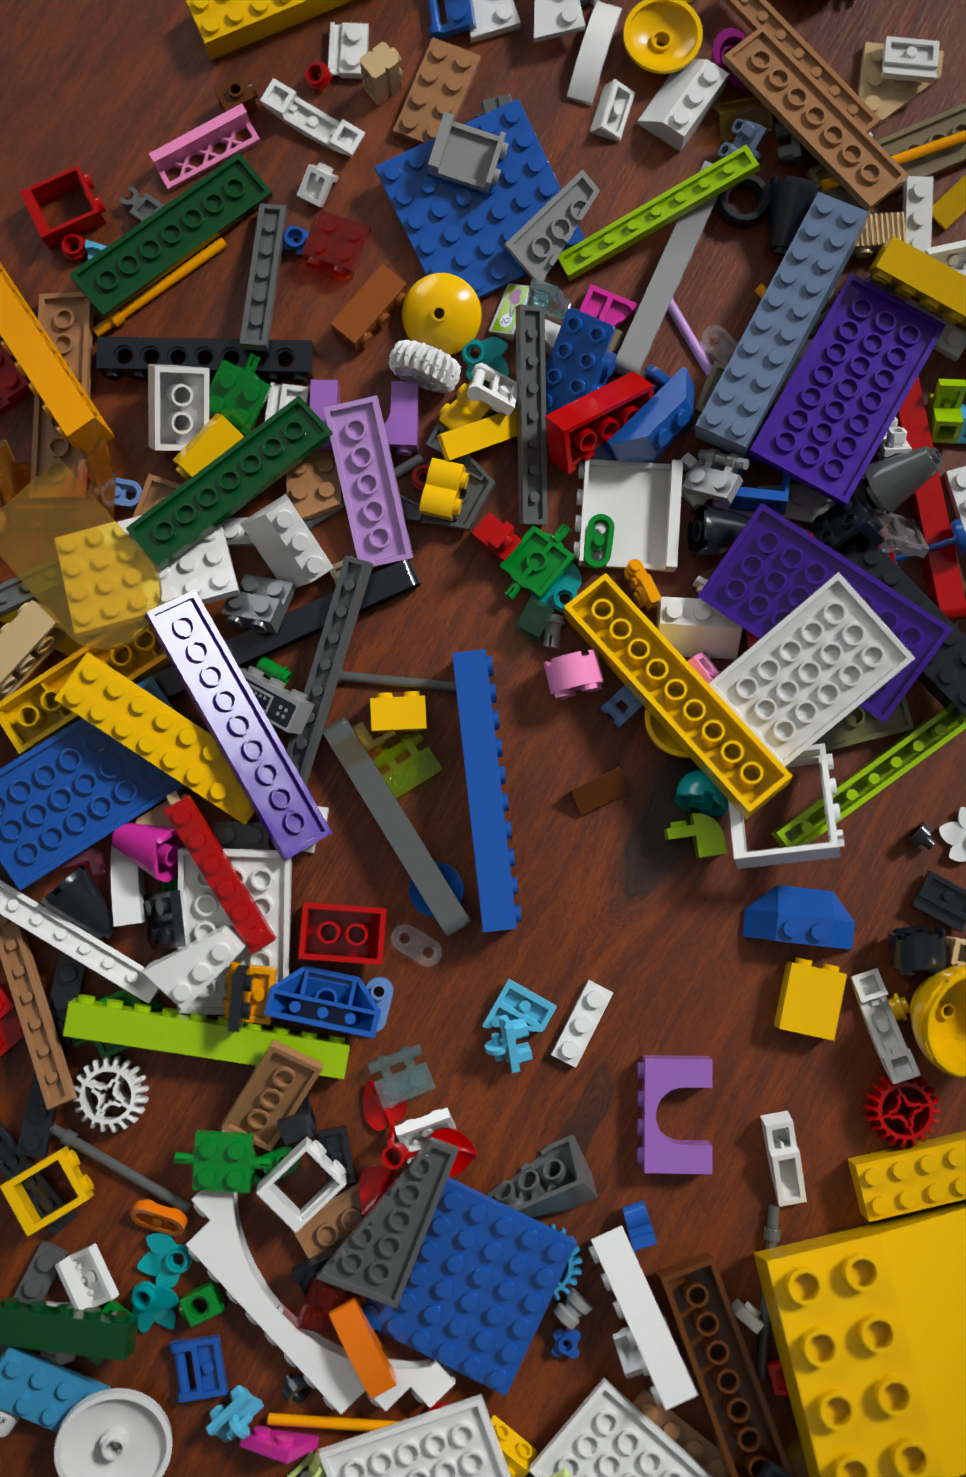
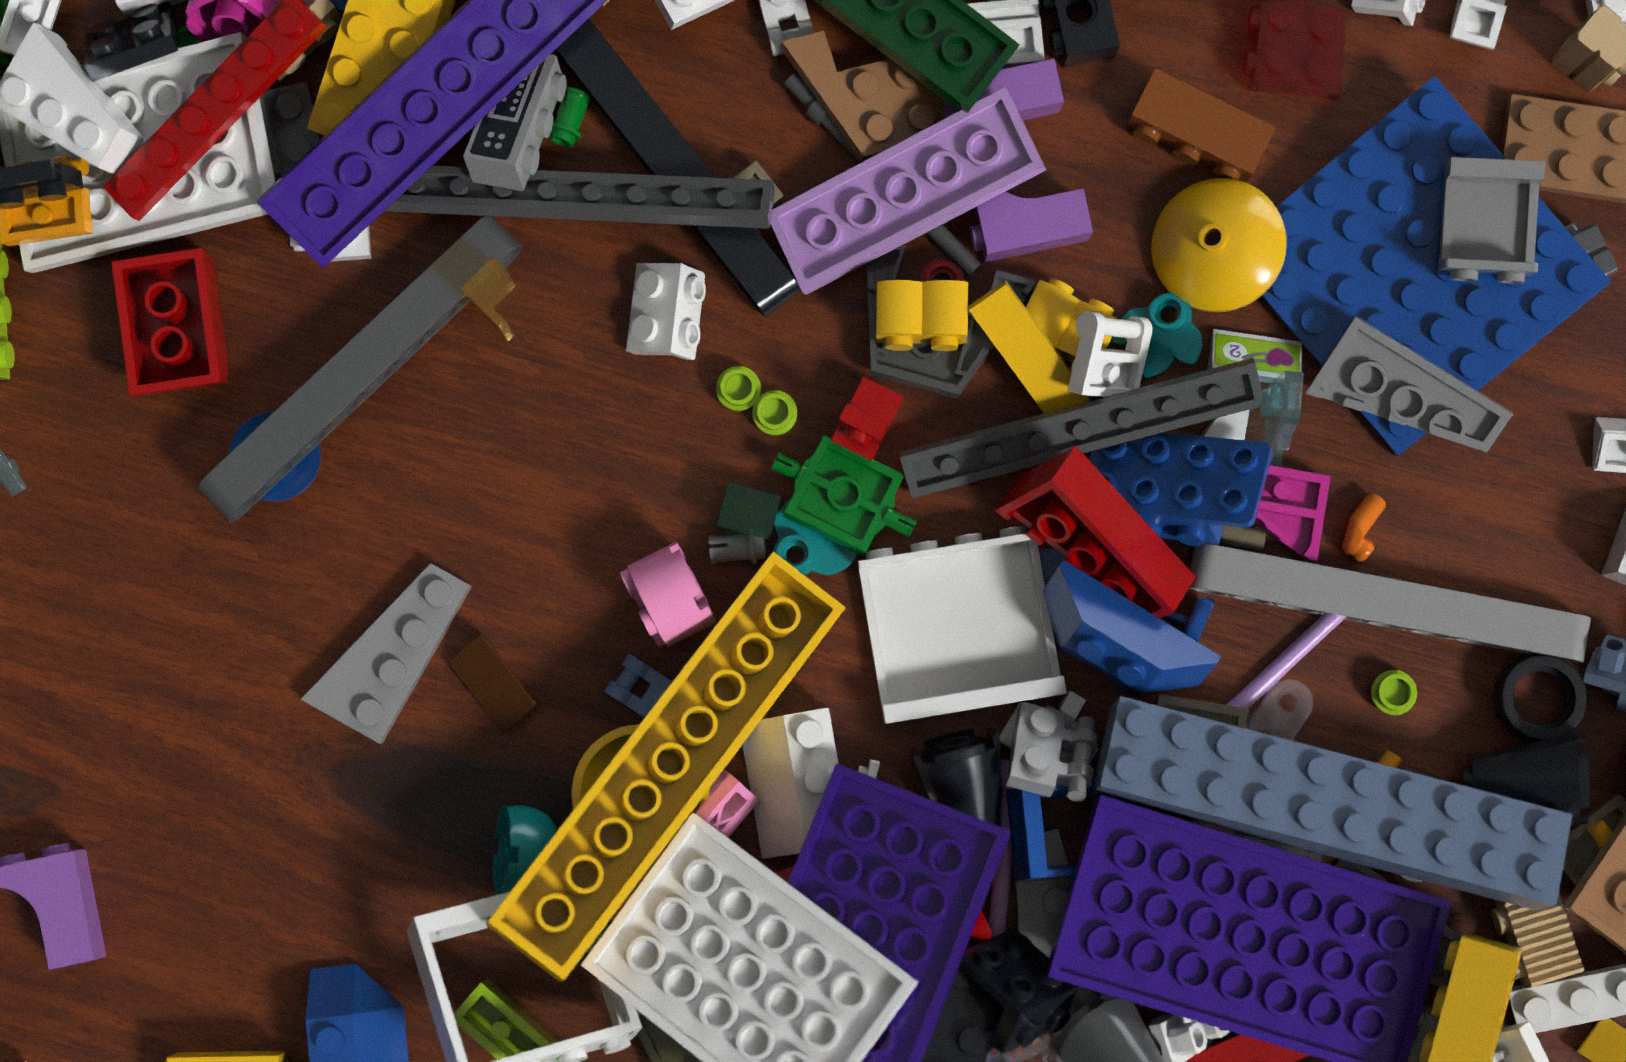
camera: 70 degrees right, 0 degrees up
(260, 604) = (667, 66): dark grey plate -> none
(286, 543) = (775, 87): white slope -> none
(325, 1001) = (55, 321): blue wedge -> none
(384, 1001) = (73, 404): medium blue plate -> none
(396, 681) = (600, 327): dark grey bar -> none
(398, 713) = (544, 330): yellow brick -> none
(403, 641) = (666, 310): none -> white bracket
(410, 772) = (456, 374): clear neon green plate -> none
(416, 945) = (187, 448): clear plate -> none
(424, 365) = (1120, 236): white gear -> none
(459, 609) = (738, 388): none -> lime plate
(478, 591) = (774, 412): none -> lime plate
(484, 790) = (442, 496): blue brick -> none
(506, 1045) = (44, 613): medium azure hips -> none
(520, 1003) = (113, 634): medium azure wing -> none
(574, 853) = (384, 665): none -> light grey wing
(581, 1023) = (114, 739): white plate -> none
(598, 542) = (898, 585): green plate -> none
(630, 281) = (1359, 524): none -> orange arm
(646, 590) = (830, 680): light orange plate -> none
(659, 212) = (1477, 559): lime plate -> none
(706, 834) = (466, 864): lime brick -> none
(721, 280) = (1393, 692): none -> lime plate

